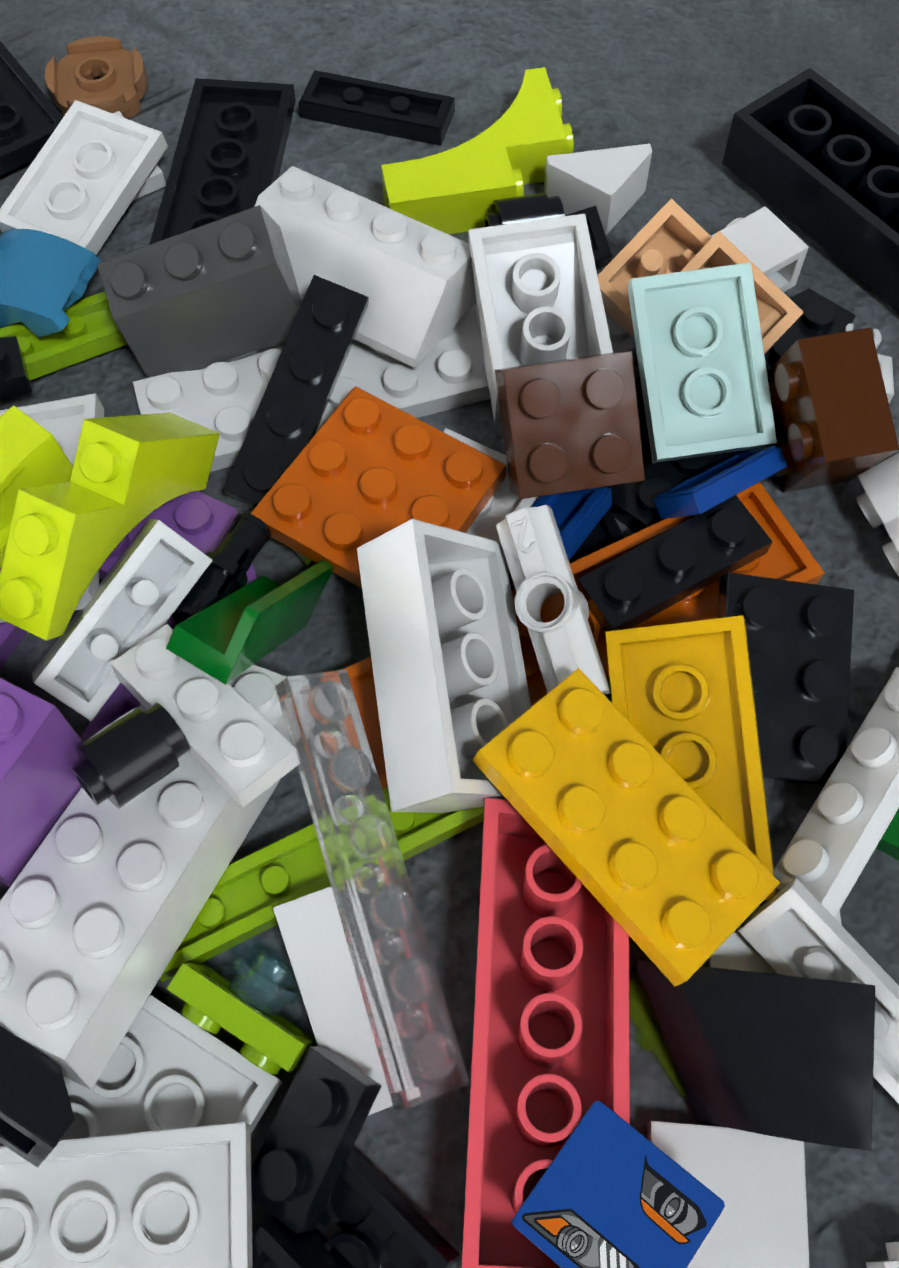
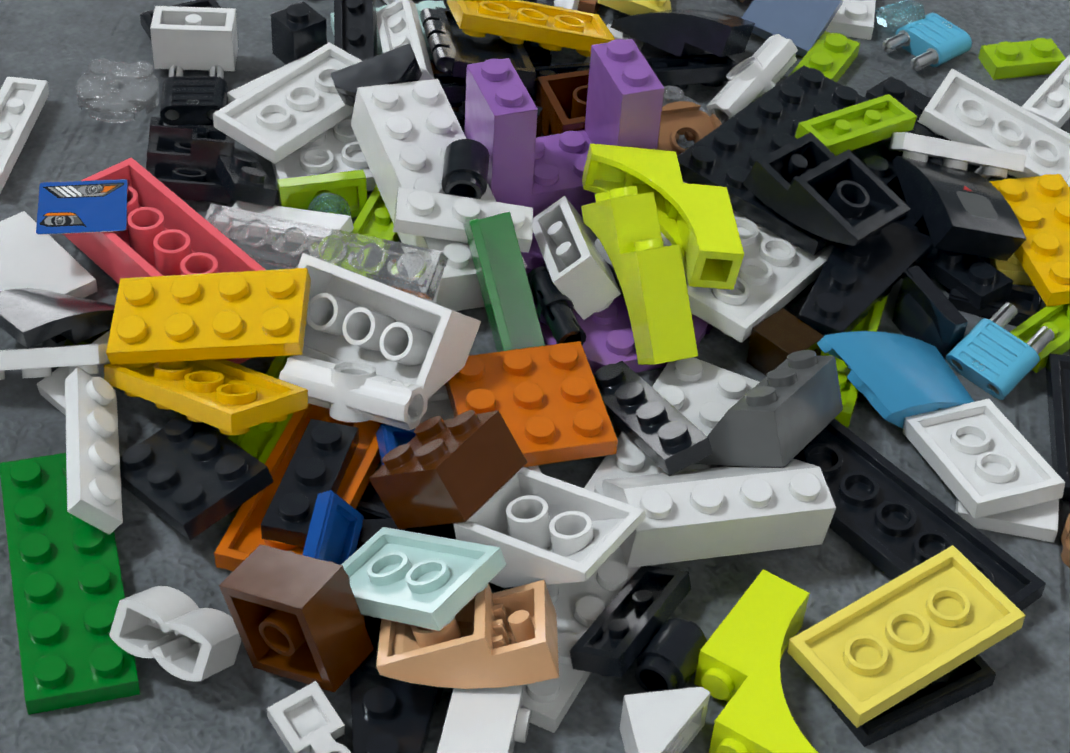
camera: 130 degrees right, 20 degrees down
(65, 373) = (777, 338): none -> dark brown brick
(351, 100) = (905, 635): none -> light yellow plate

